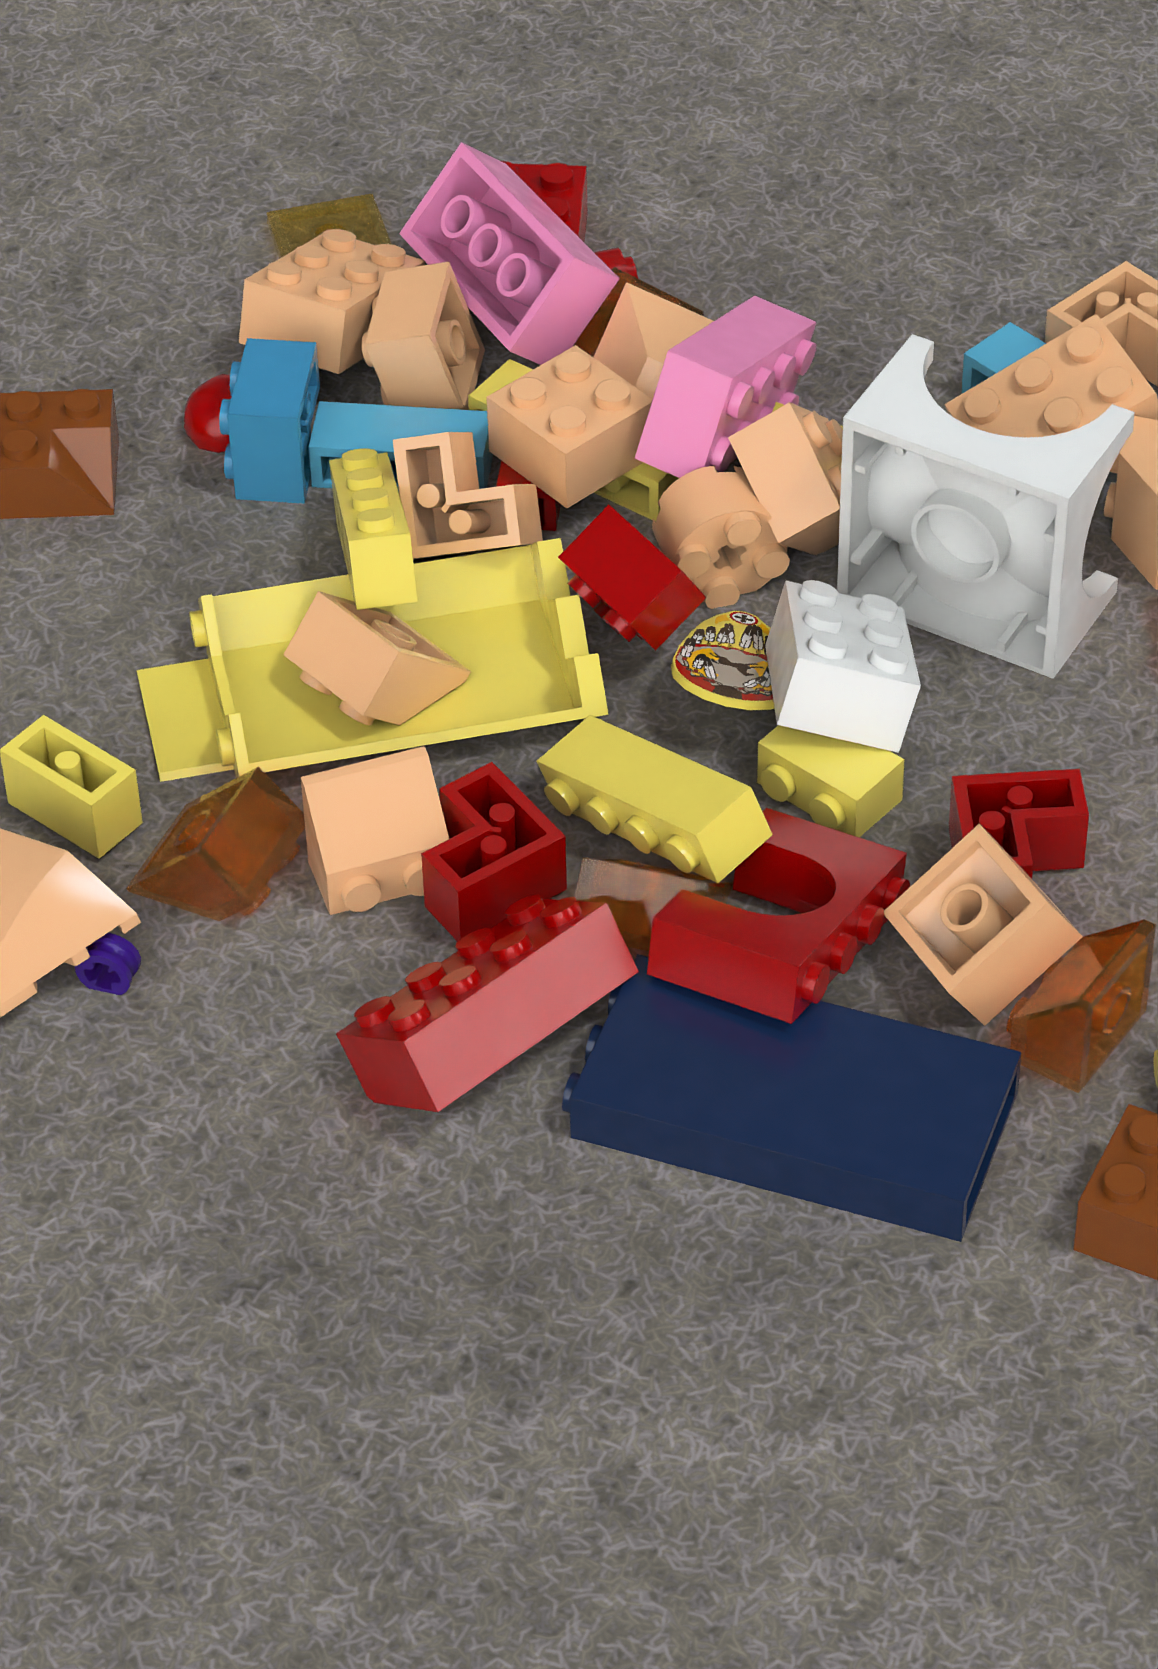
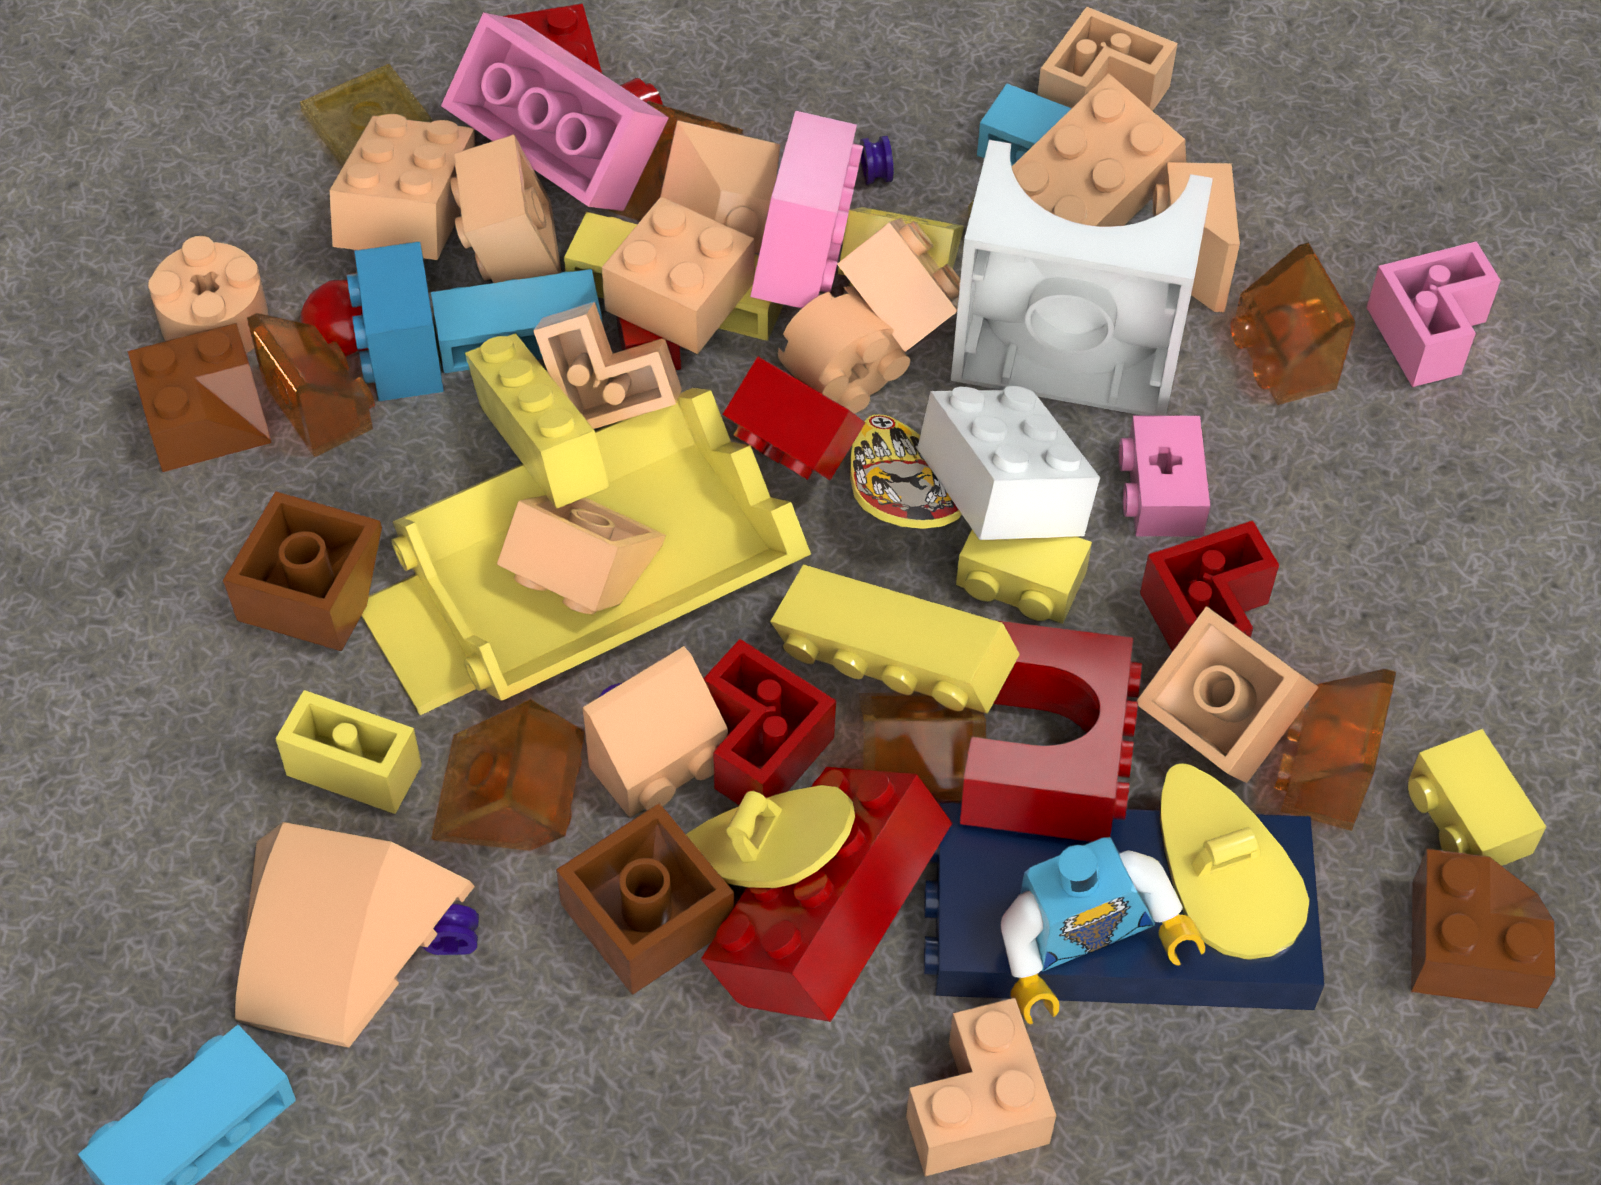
camera: 20 degrees left, 10 degrees up
(92, 622) = (305, 571): none -> dark orange slope
(103, 353) = (206, 289): none -> light nougat brick
(169, 460) = (310, 382): none -> clear orange slope
(302, 970) = (645, 897): none -> dark orange slope
(447, 942) = (776, 837): none -> light yellow shield
(569, 1232) = (994, 1102): none -> light nougat brick
(730, 1056) = (1083, 904): none -> torso
(844, 374) = (877, 160): none -> dark purple bush
(910, 1076) = (1229, 868): none -> light yellow shield
(1020, 718) = (1166, 476): none -> bright pink brick

